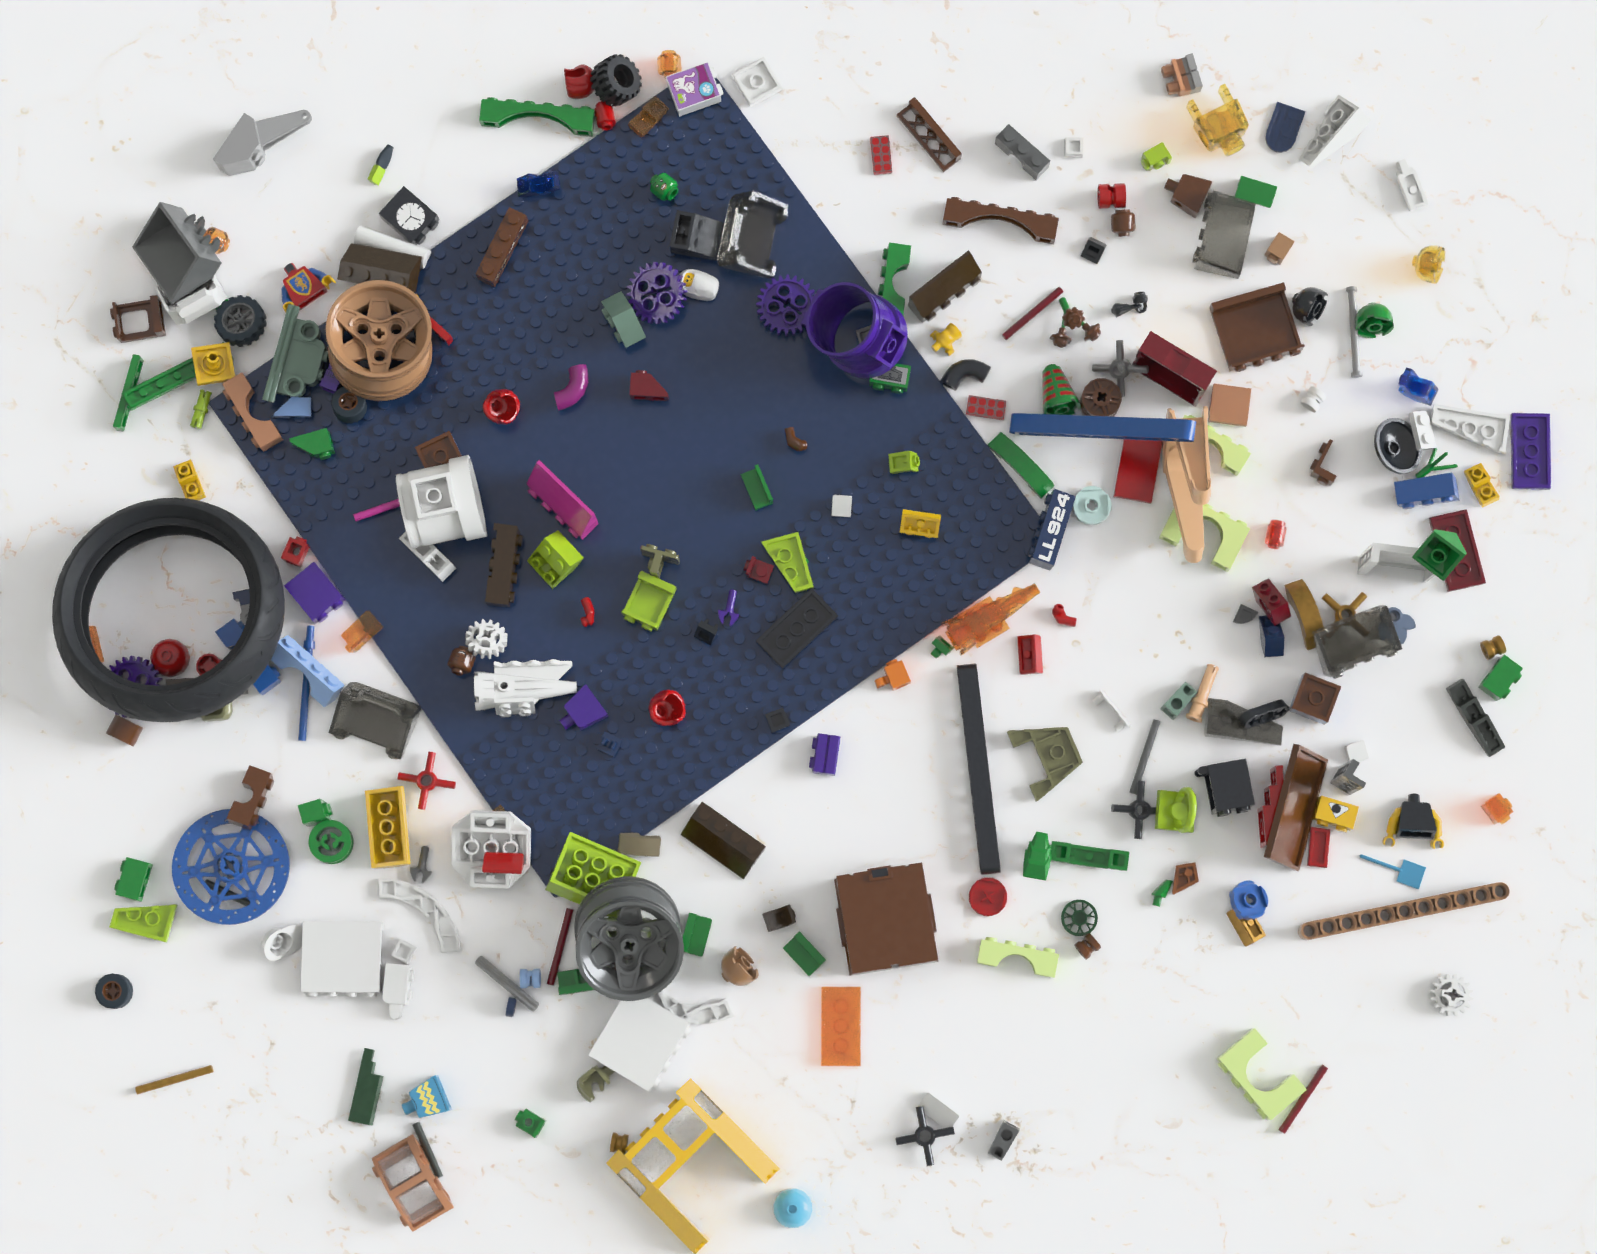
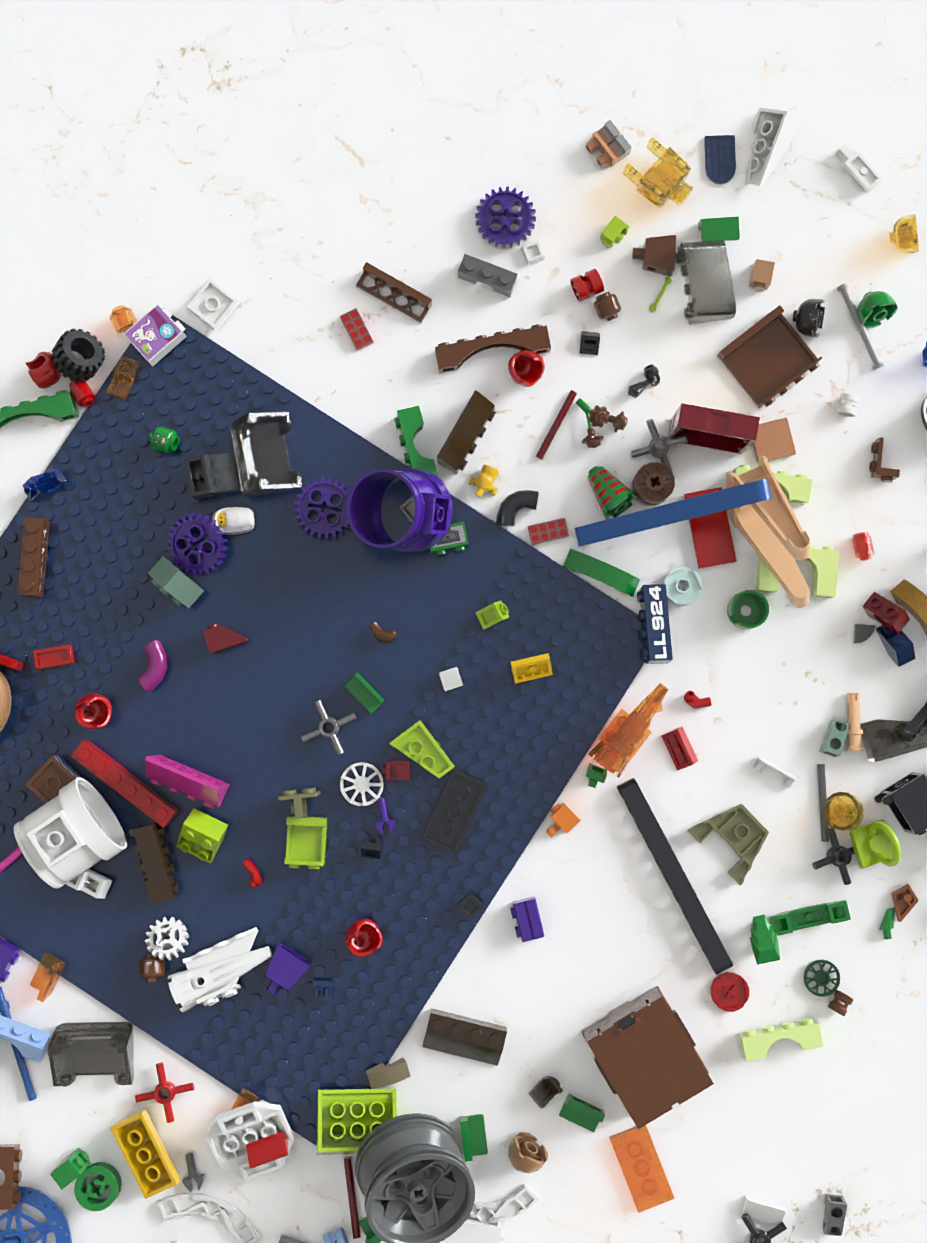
camera: 20 degrees left, 5 degrees up
(483, 345) = (53, 657): none -> red tile
(504, 483) = (125, 783): none -> red brick
(711, 513) = (320, 730): none -> flat silver bar
(720, 570) = (361, 784): none -> white wheel
(1024, 249) = (526, 368): none -> red piece
(1067, 90) = (506, 200): none -> dark purple gear
(1151, 542) = (758, 605): none -> green piece
(1159, 768) = (843, 811): none -> clear yellow cylinder
(1165, 240) = (652, 308): none -> lime hinge

